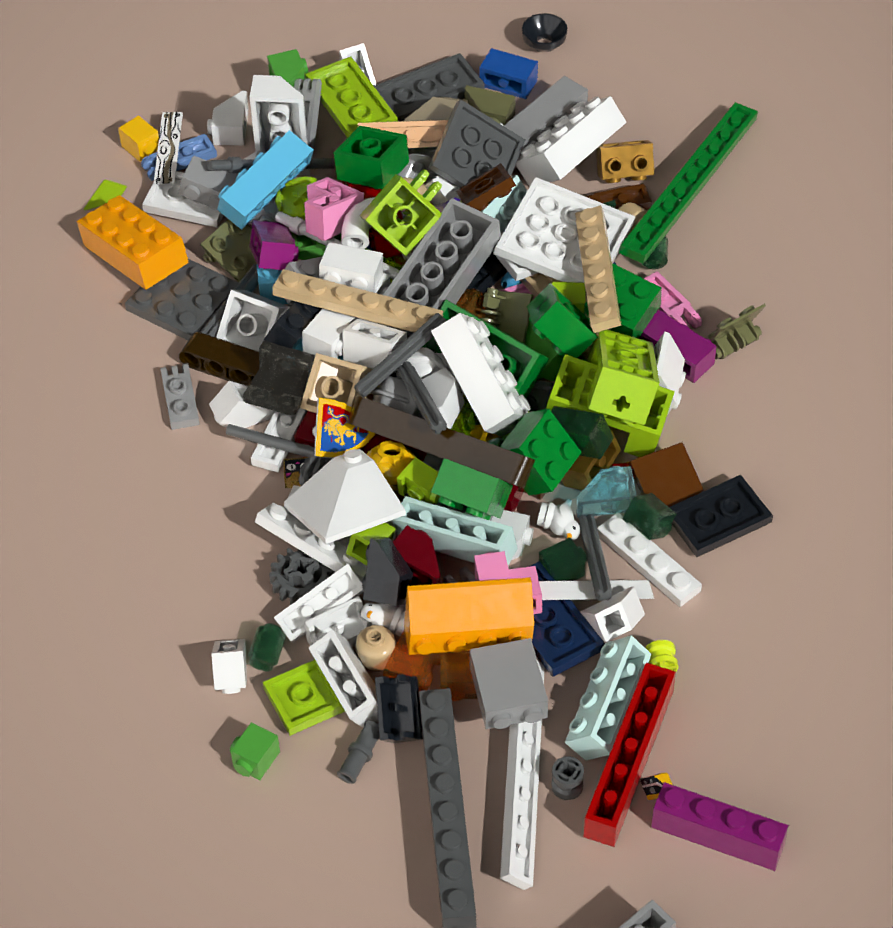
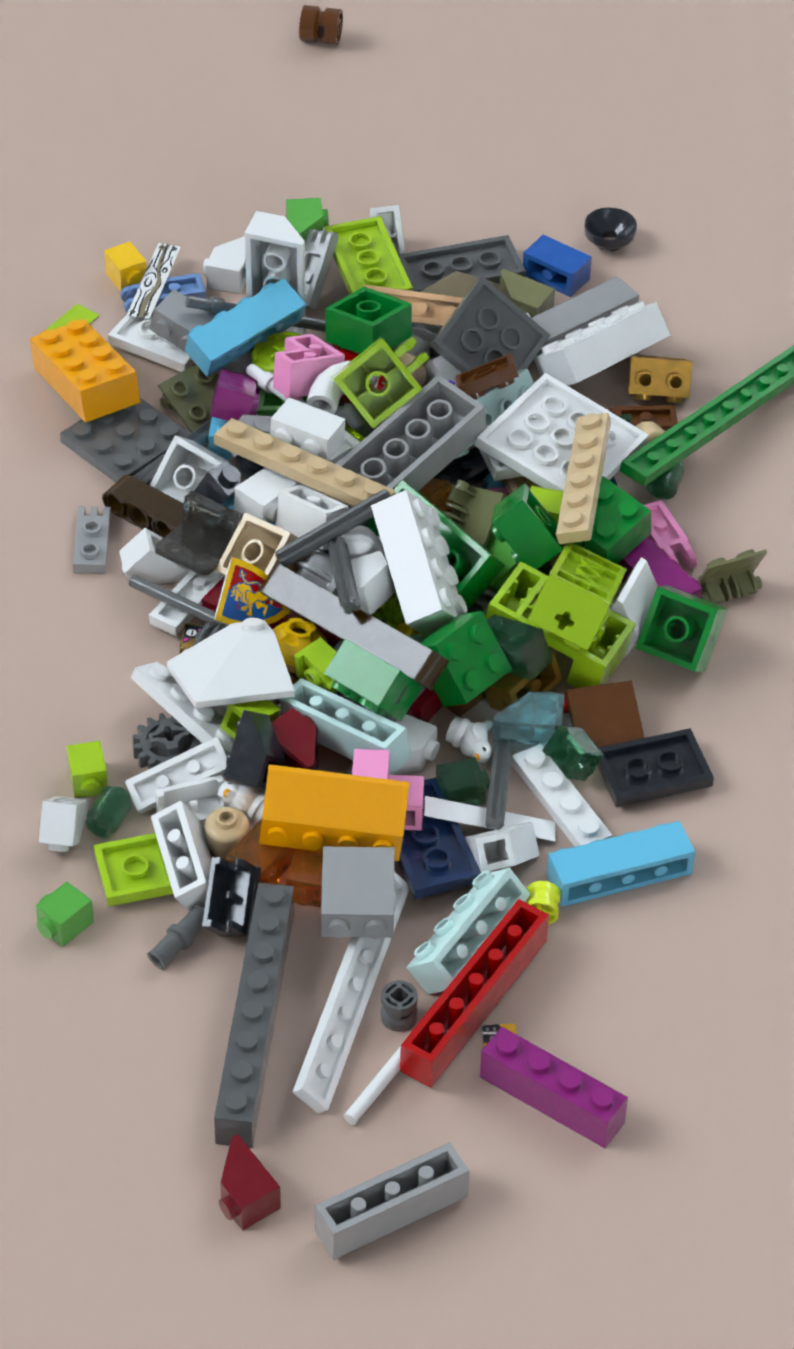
camera: 10 degrees right, 5 degrees down
(237, 612) = (87, 768): none -> lime brick
(383, 246) = (354, 419): none -> dark grey arm
(568, 852) = (374, 1089): none -> white bar
(710, 386) = (681, 628): none -> green brick
(717, 608) = (621, 863): none -> medium azure brick

